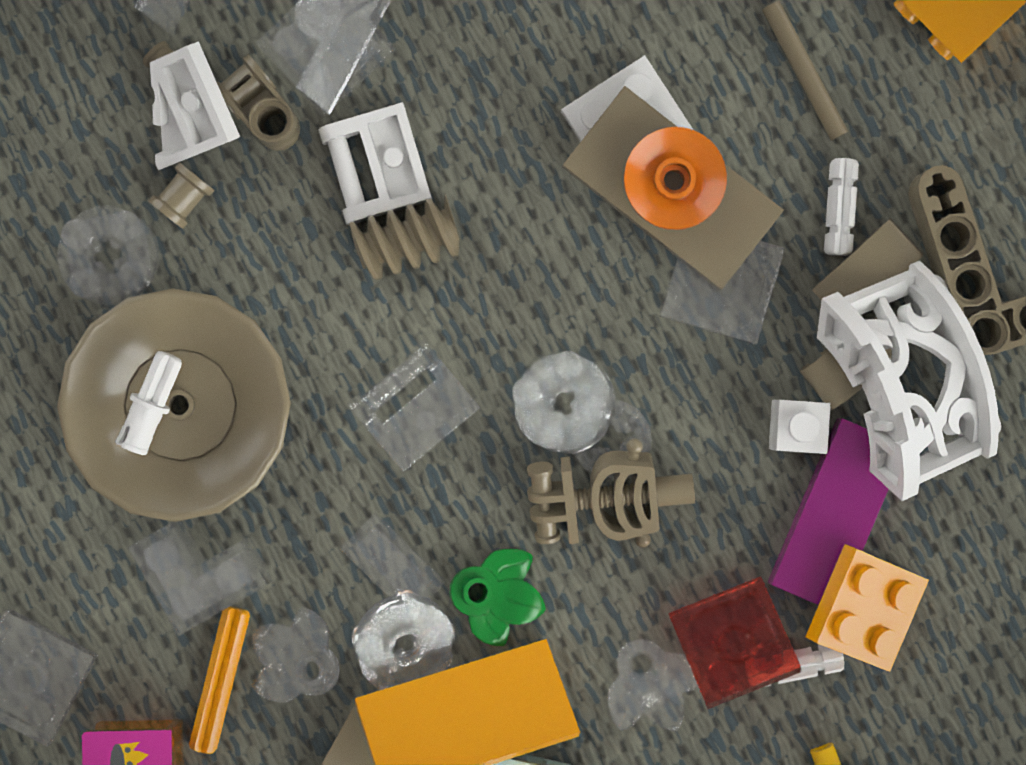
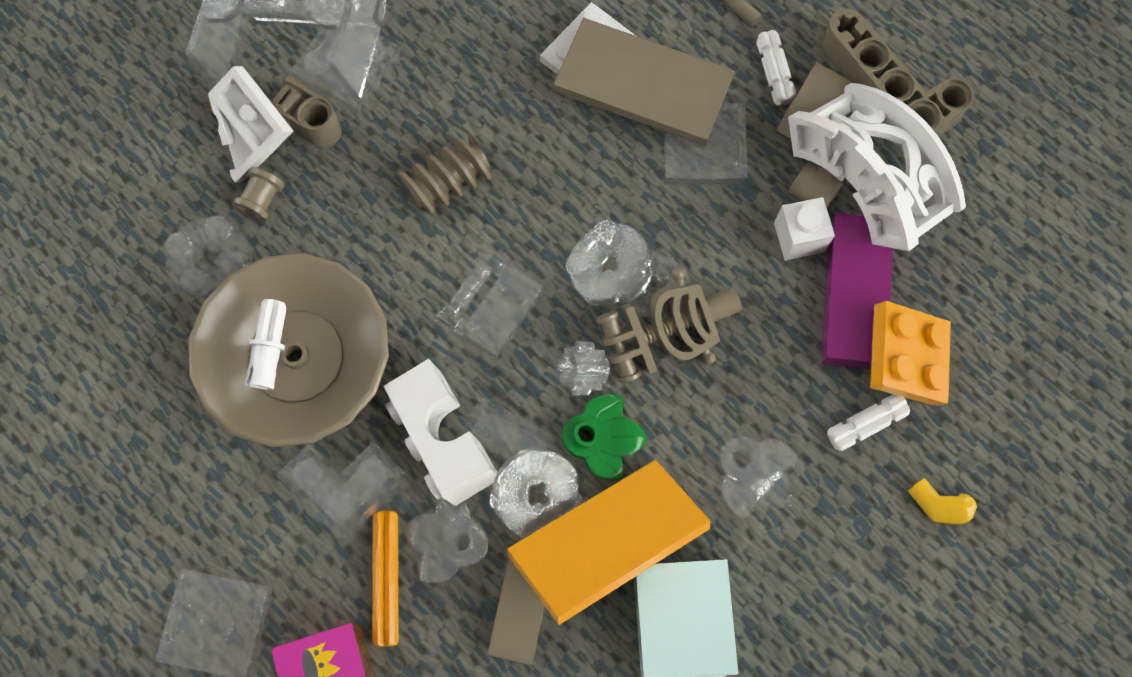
camera: 15 degrees left, 15 degrees down
(302, 506) = (420, 403): none -> white arch
(391, 160) = (417, 122): white plate -> none
(496, 516) = (582, 368): none -> clear gear
(680, 152) = (649, 48): orange dish -> none
(734, 642) = (814, 413): clear red plate -> none

